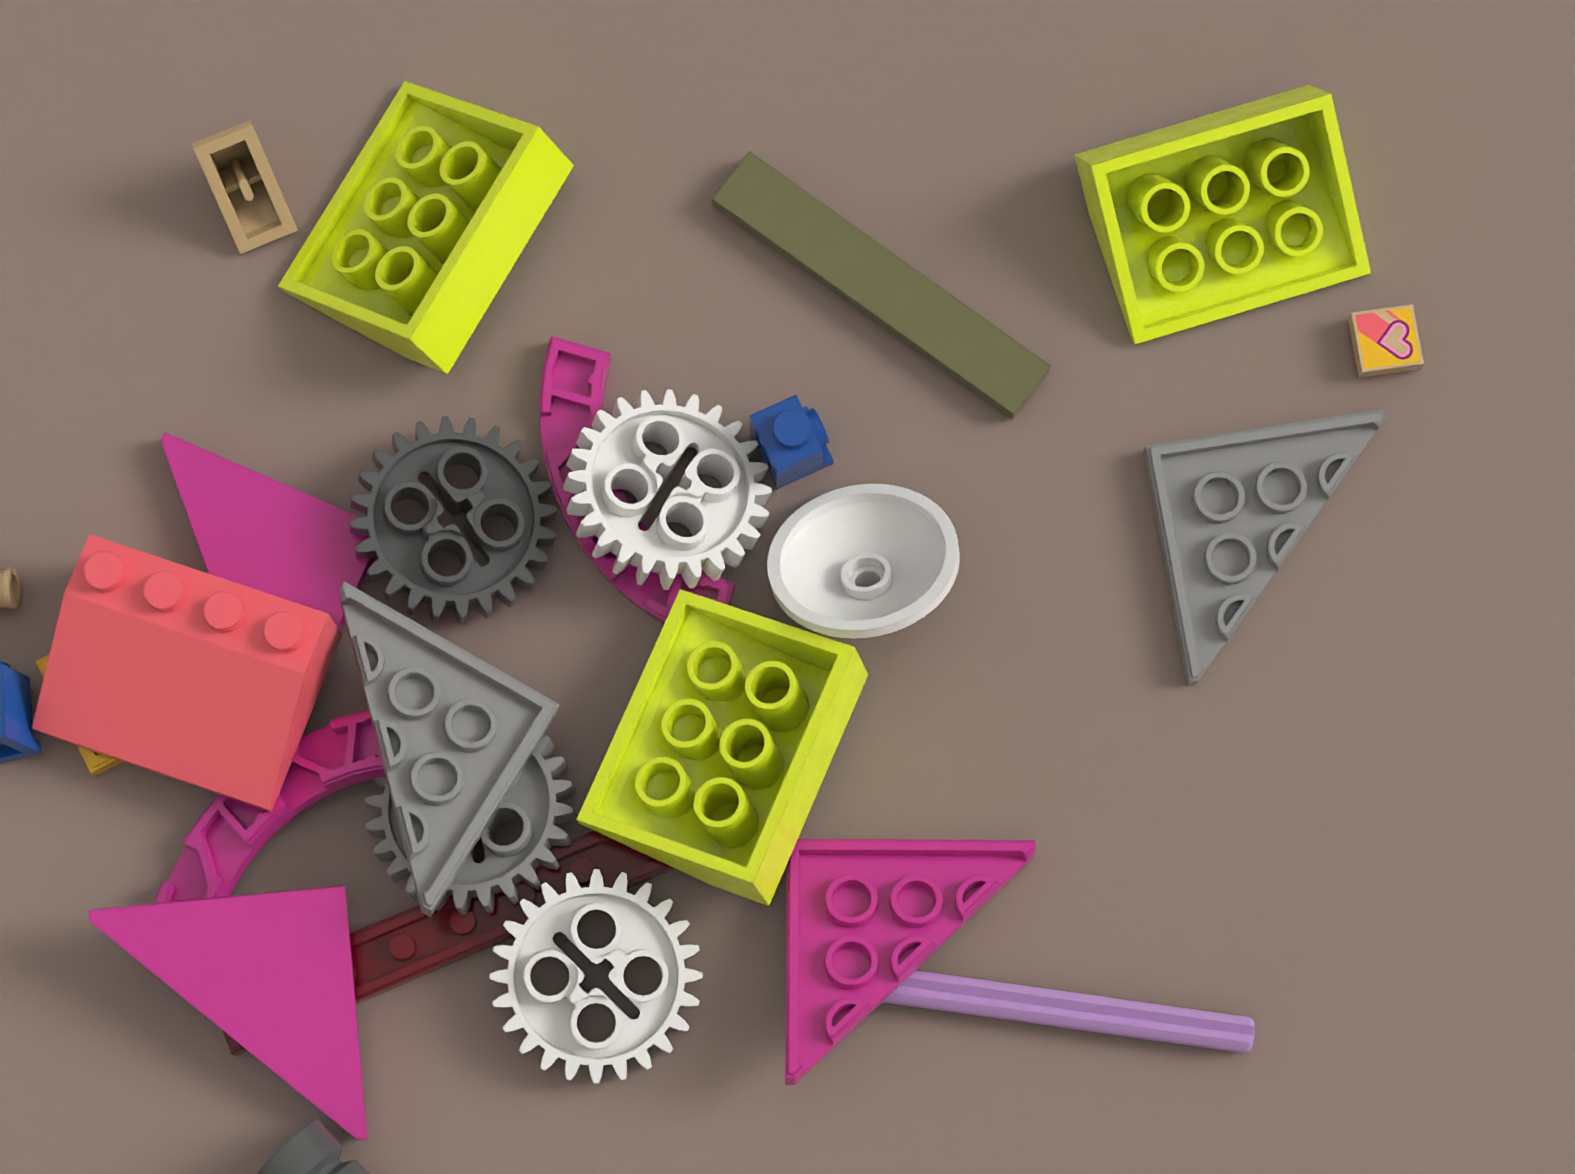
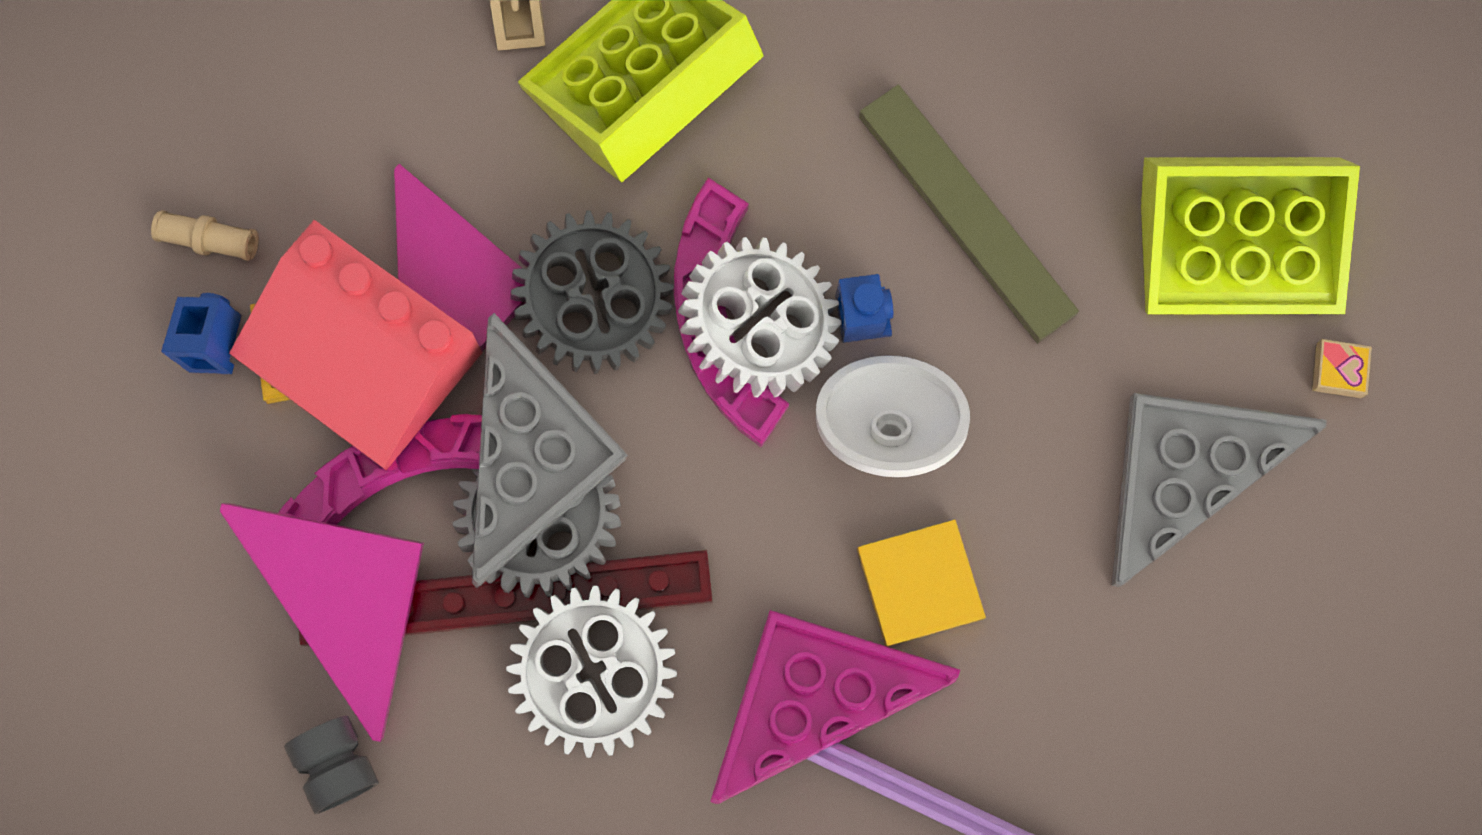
camera: 15 degrees right, 0 degrees up
(725, 745) = (744, 524): neon yellow slope -> none
(957, 751) = (920, 583): none -> yellow tile

